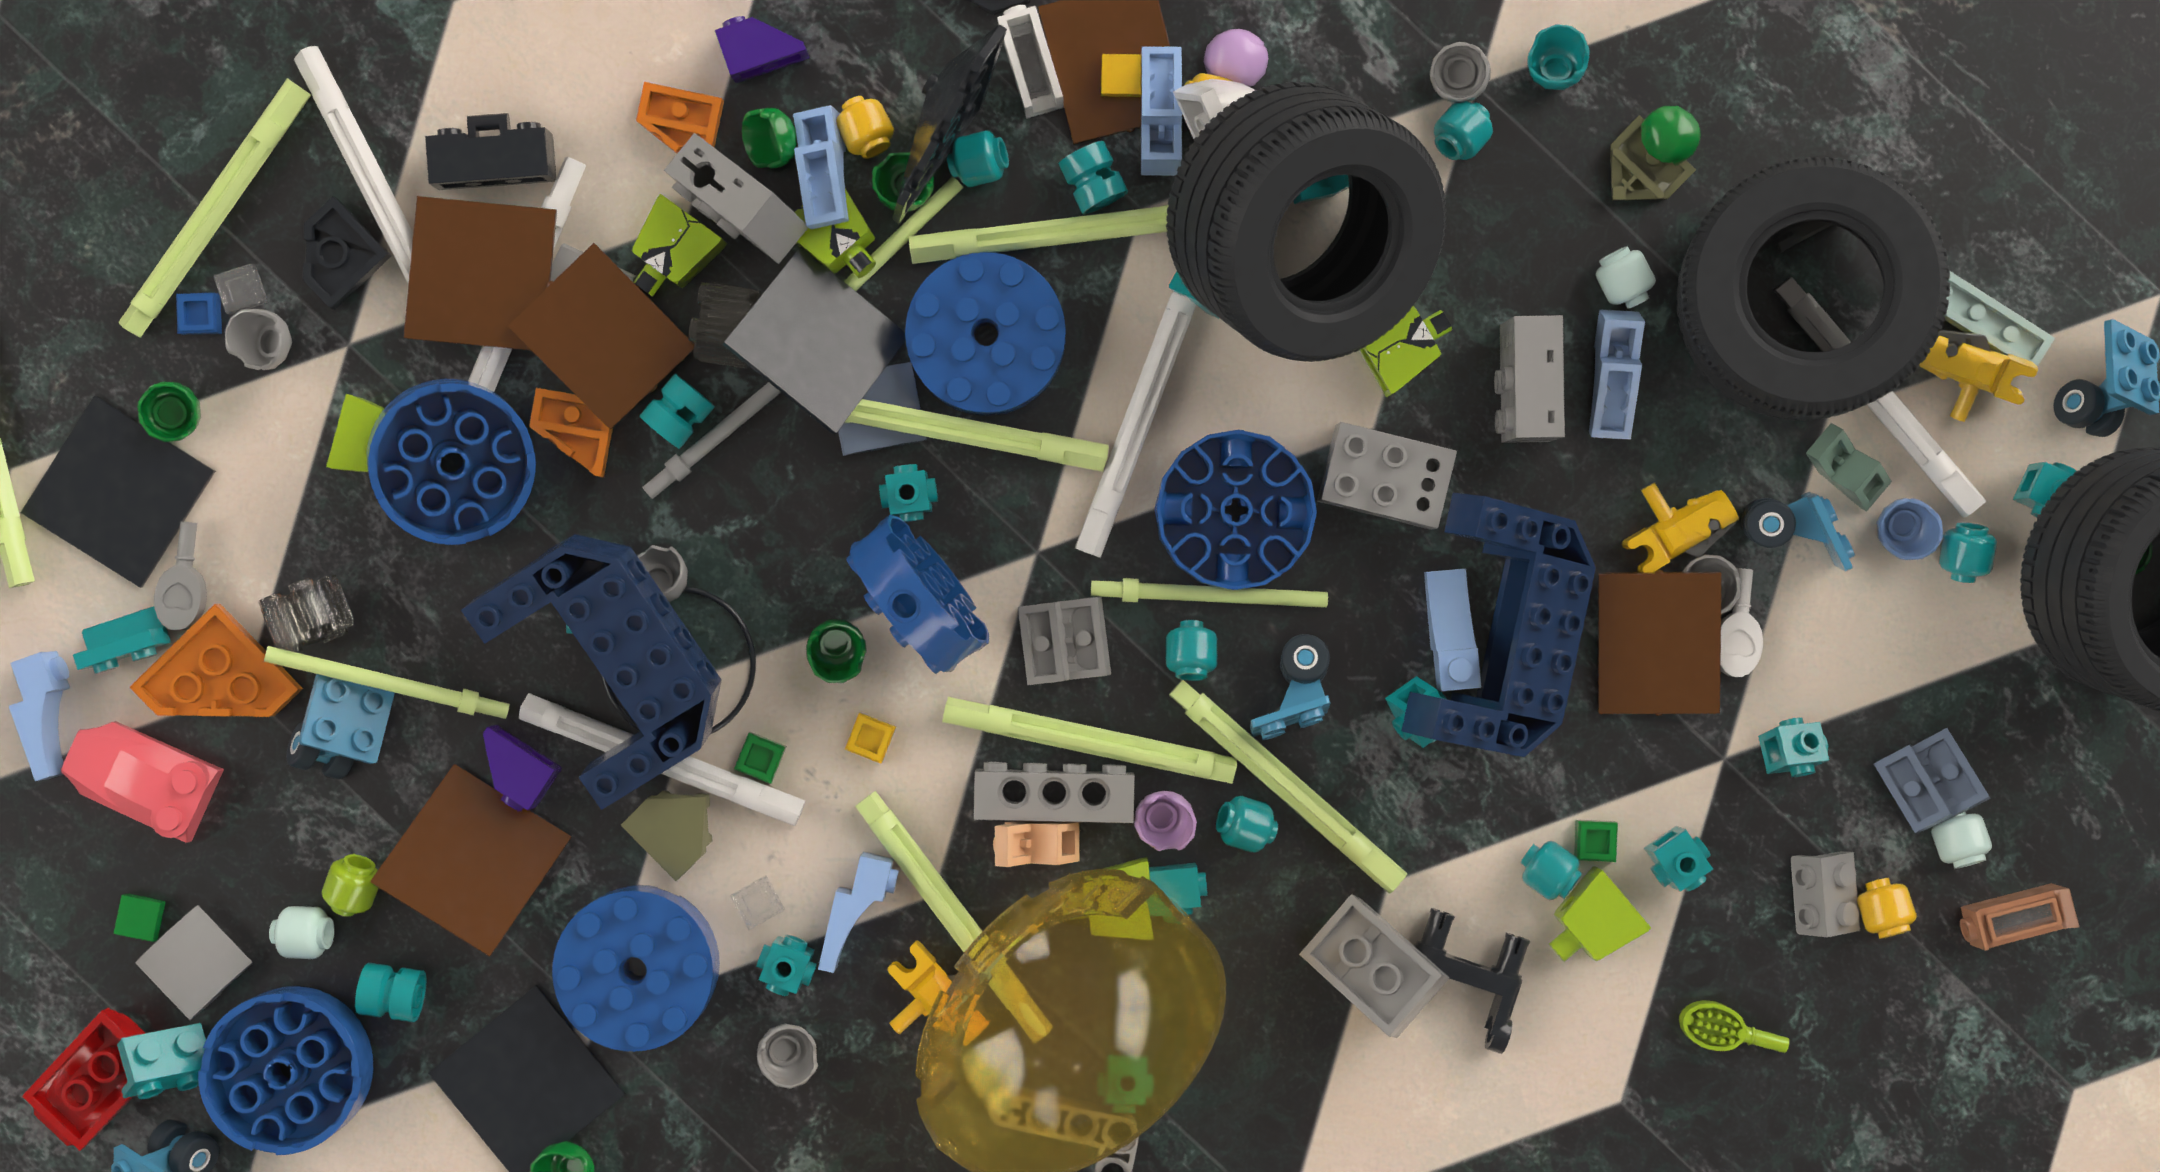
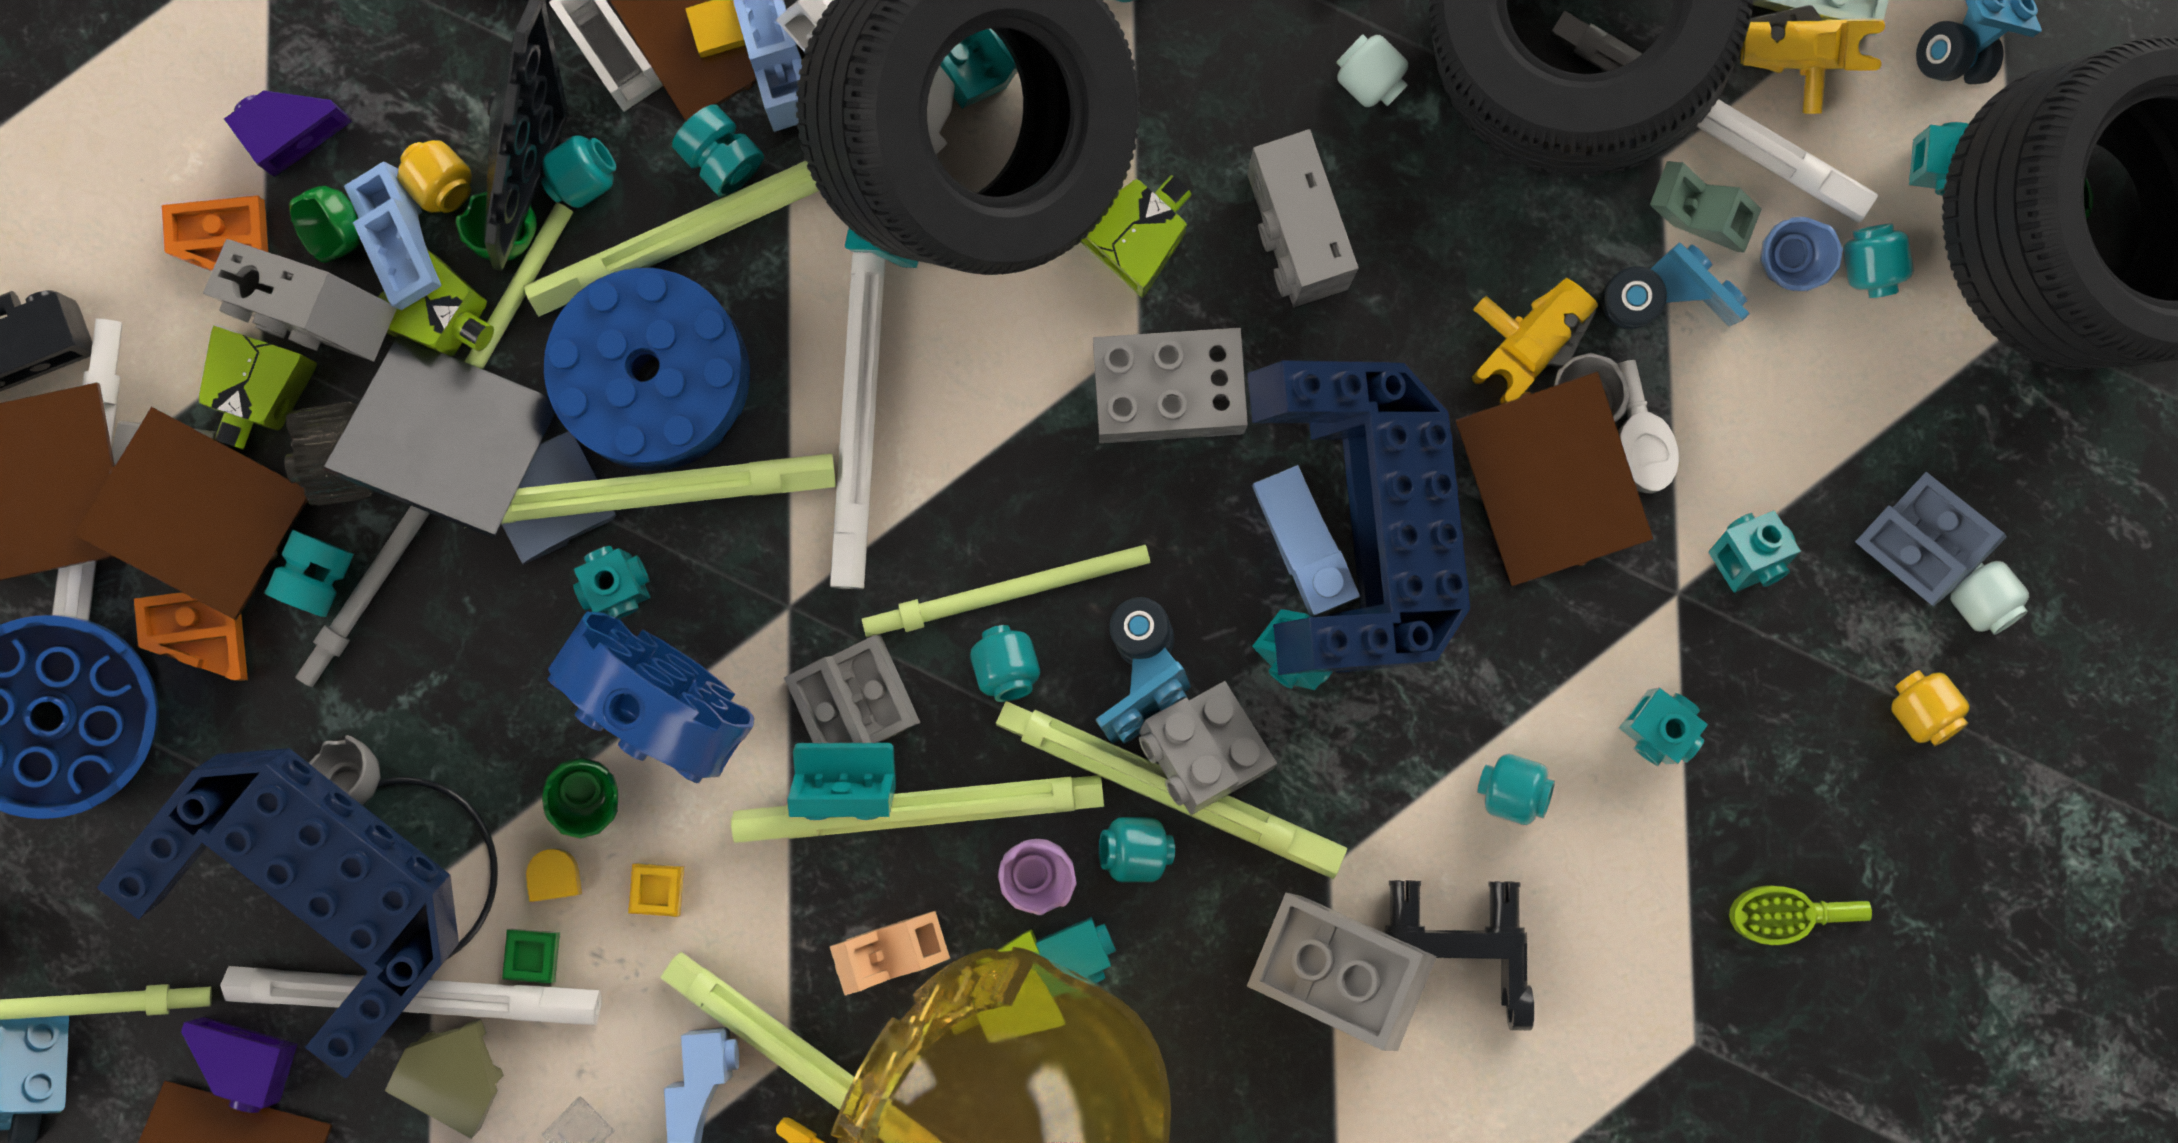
camera: 20 degrees left, 5 degrees down
(795, 702) = (552, 875): none -> yellow tile
(993, 805) = (823, 921): light grey brick -> none
(1041, 702) = (842, 780): none -> teal bracket
(1265, 483) = (1012, 431): blue brick -> none
(1324, 764) = (1205, 748): none -> light grey plate
(1596, 840) = (1559, 737): green tile -> none
(1596, 919) = (1590, 830): lime torso -> none
(1616, 373) = (1399, 185): light blue slope -> none
(1825, 894) = (1852, 714): light grey bracket -> none
(2018, 916) = (2089, 667): nougat window -> none

